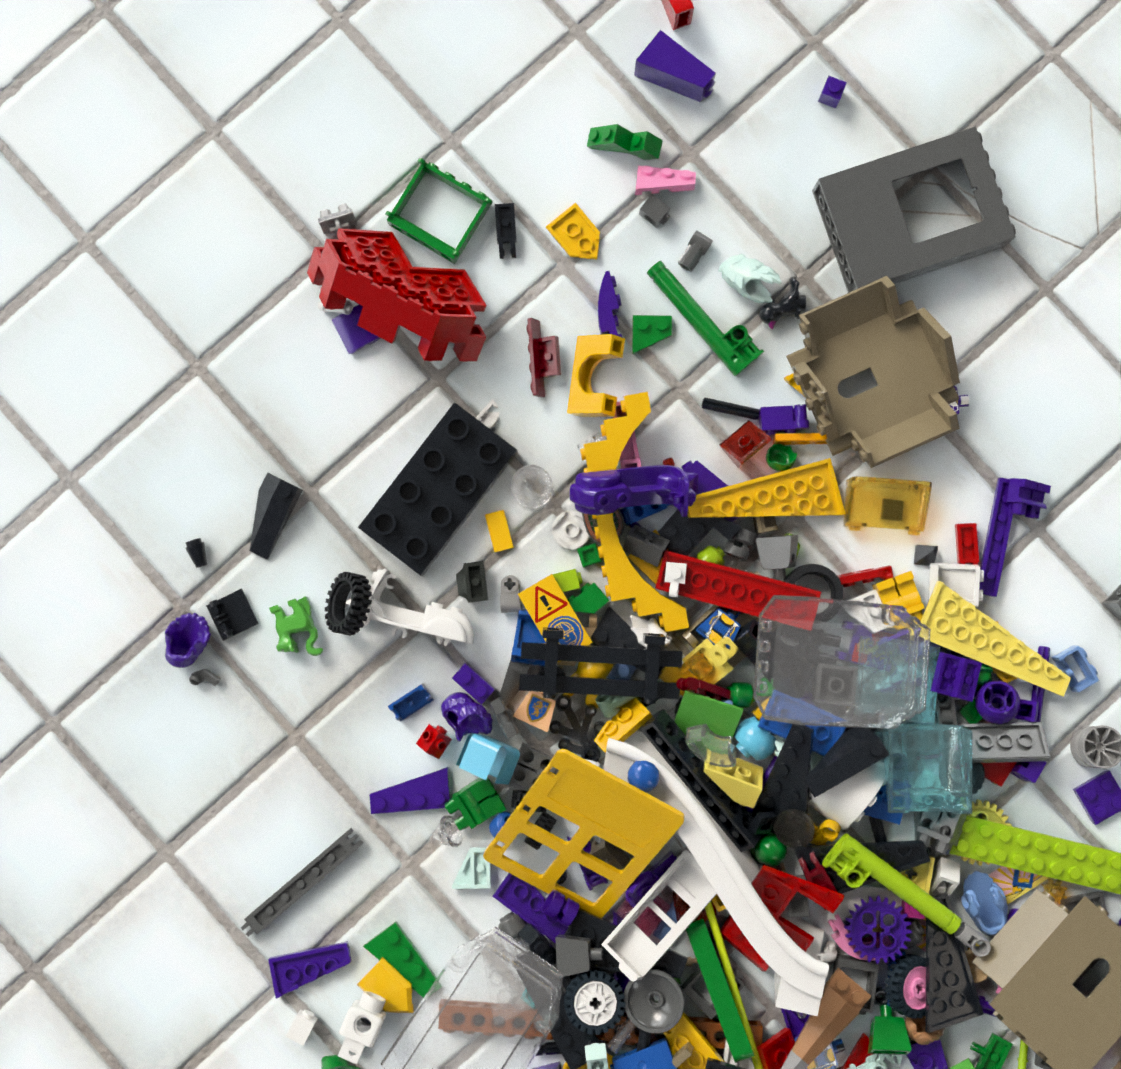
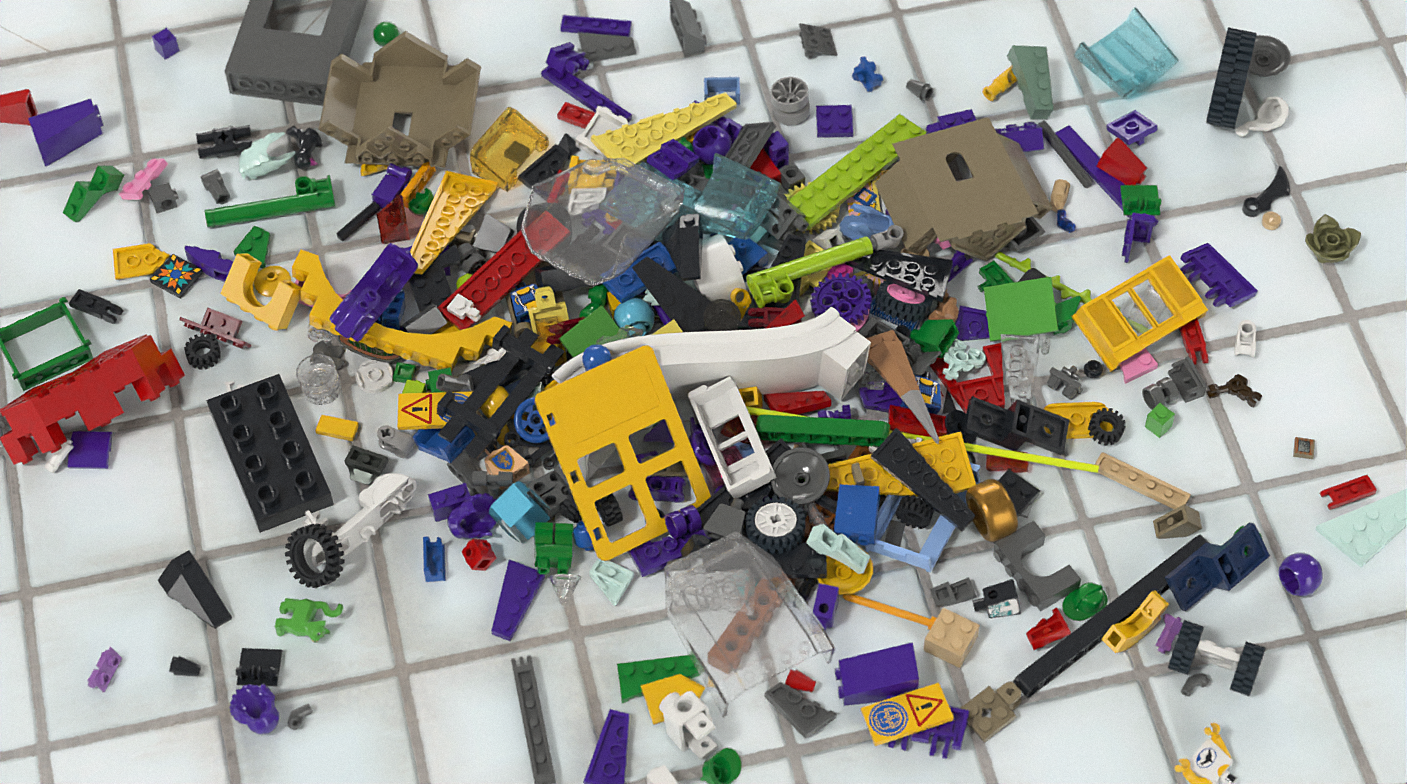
camera: 65 degrees left, 30 degrees down
(151, 487) = (106, 668): none -> medium lavender hinge
(505, 348) = (206, 359): none -> black tyre
(568, 476) = (333, 352): none -> dark grey plate
(578, 723) = (520, 425): none -> blue plate
(579, 280) = (176, 276): none -> tile
(592, 622) = (451, 383): none -> dark grey piece
(621, 380) = (268, 279): none -> yellow dish
(752, 215) = (218, 136): none -> black pin
(759, 989) = (845, 414): none -> dark purple piece
(854, 1037) = (920, 361): none -> dark grey hinge
(881, 550) = (544, 166): none -> black wing
(964, 296) = (385, 32): none -> green hair
(1008, 803) = (791, 176): none -> dark grey brick
(1069, 520) = (604, 47): none -> dark grey wing
(1090, 495) = (594, 25): none -> dark purple tile

